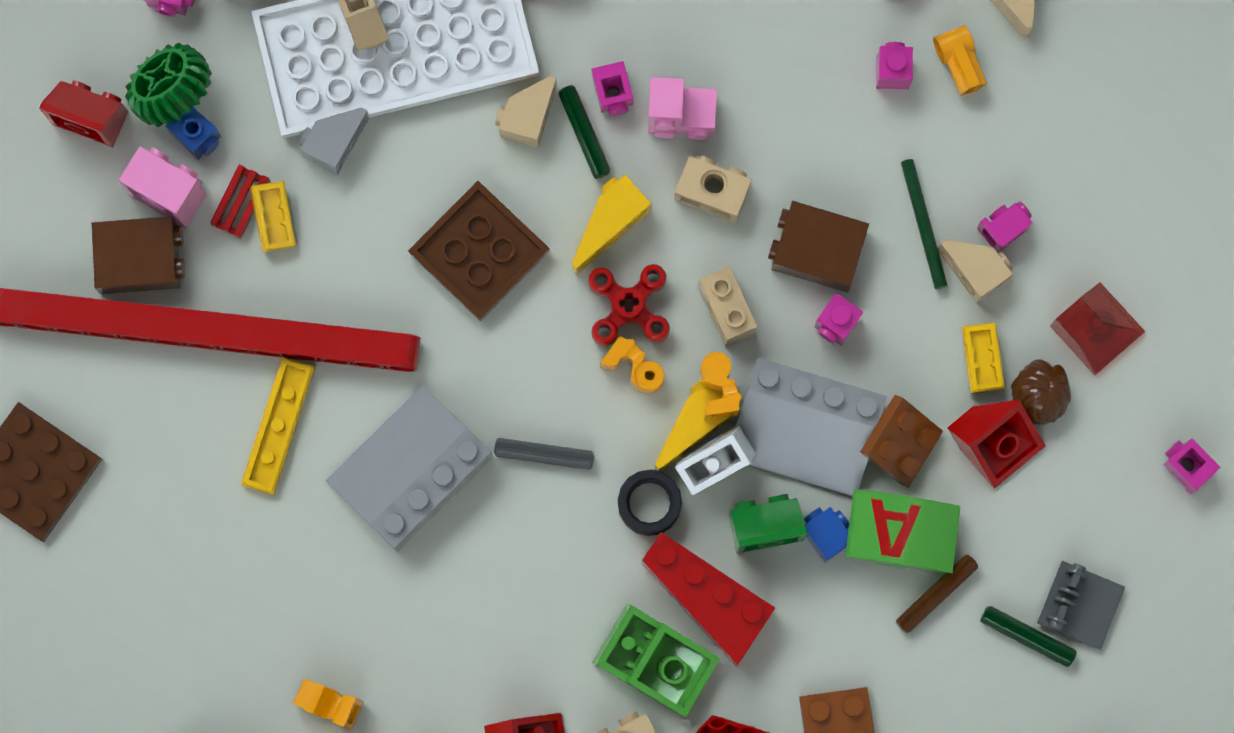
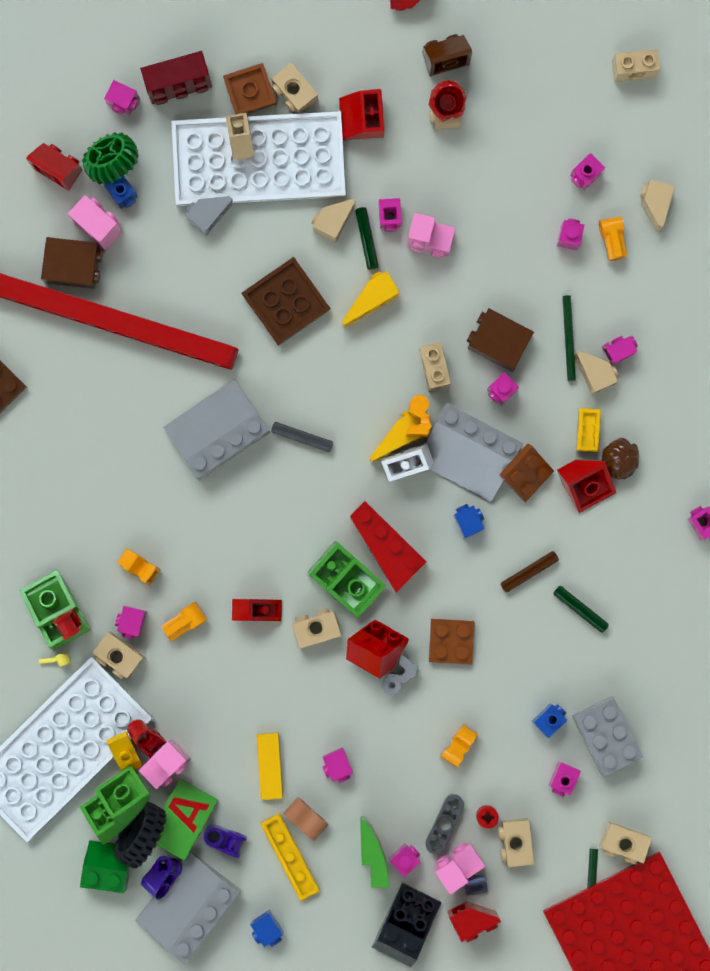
camera: 10 degrees right, 5 degrees up
(227, 197) = (128, 245): red tile -> none
(273, 216) = (160, 254): yellow plate -> none
(278, 426) = (140, 387): yellow tile -> none
(640, 313) = (367, 347): red gear -> none
(645, 375) = (375, 400): light orange leg -> none
(666, 483) = (356, 465): black tyre -> none
(725, 203) = (446, 301): tan brick -> none
(767, 524) = (432, 508): green slope -> none
(902, 531) = (515, 529): bright green slope -> none
(1081, 604) = (617, 596): dark grey hinge -> none
(1097, 328) = (664, 425): clear red slope -> none

